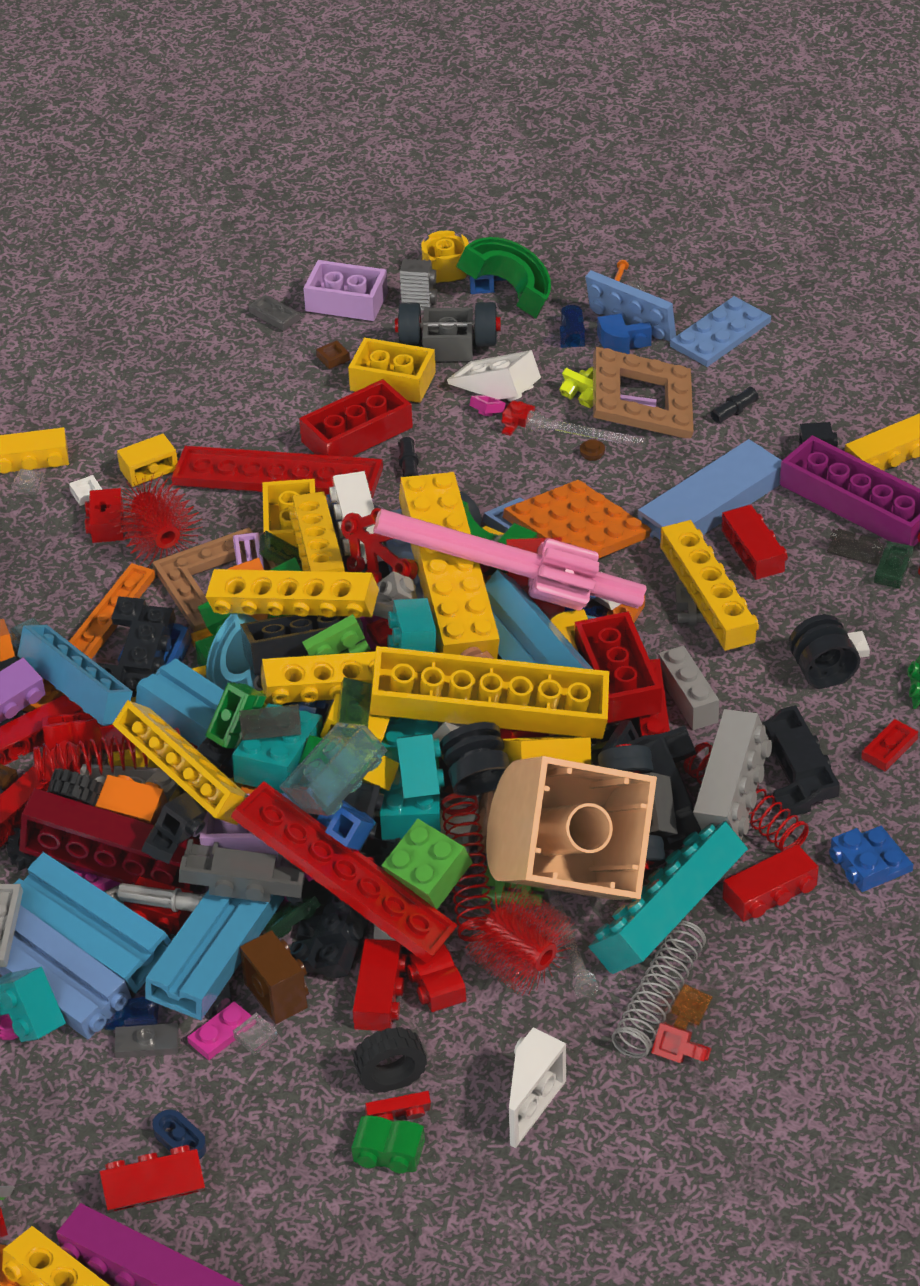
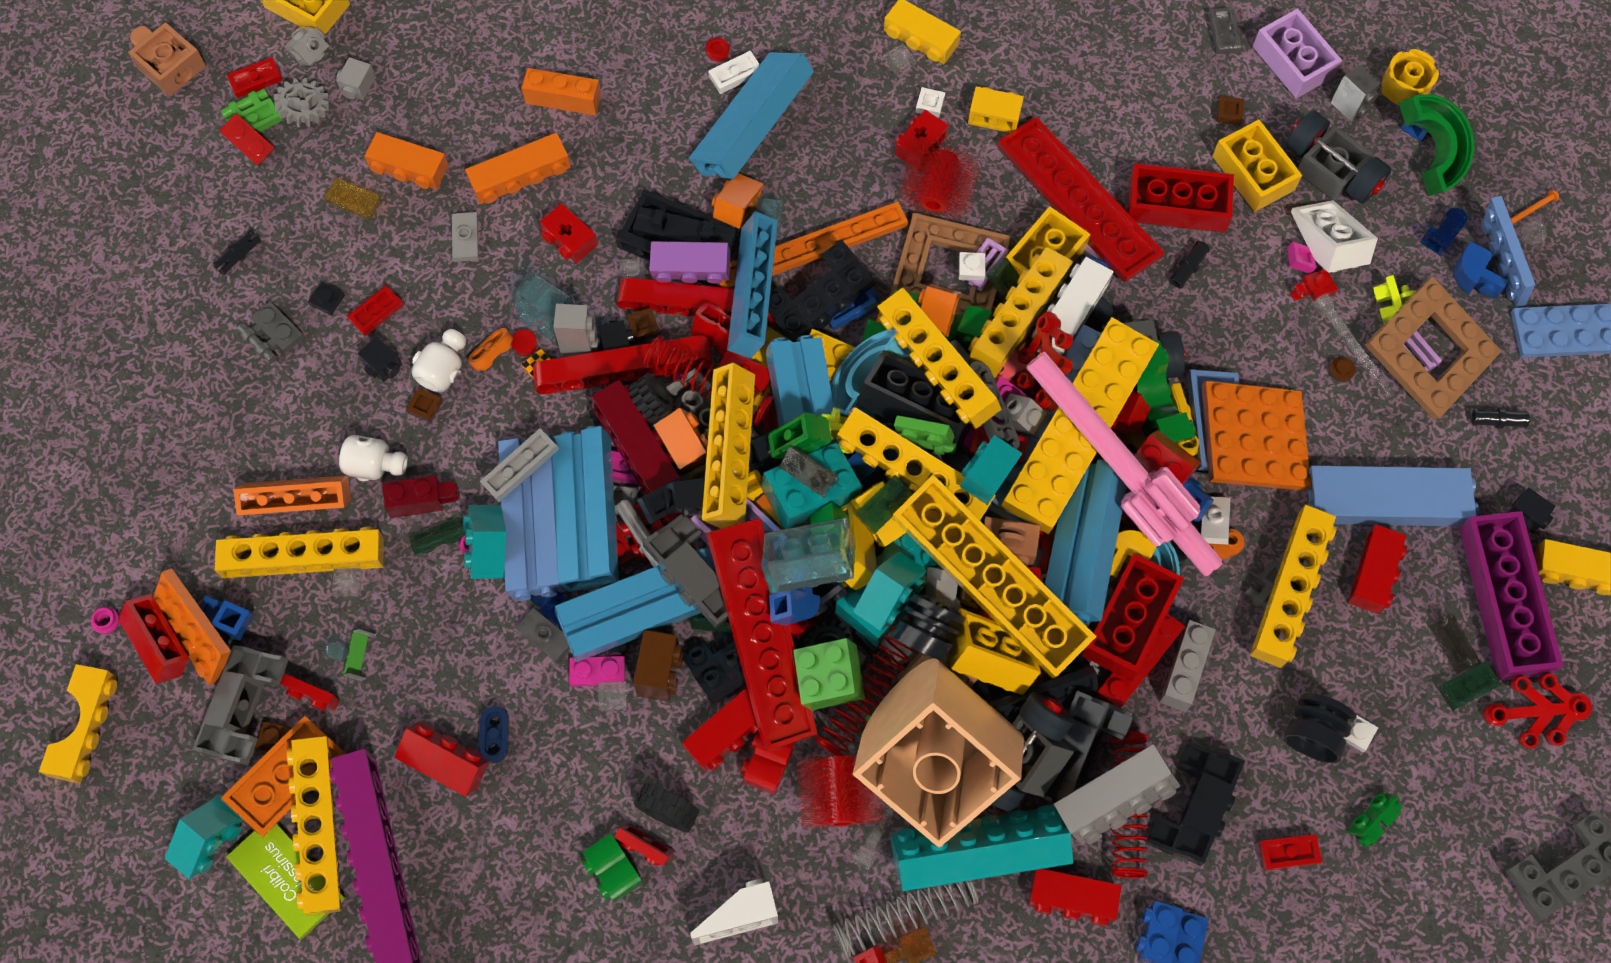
camera: 40 degrees right, 25 degrees up
(240, 553) = (972, 266): none -> white plate

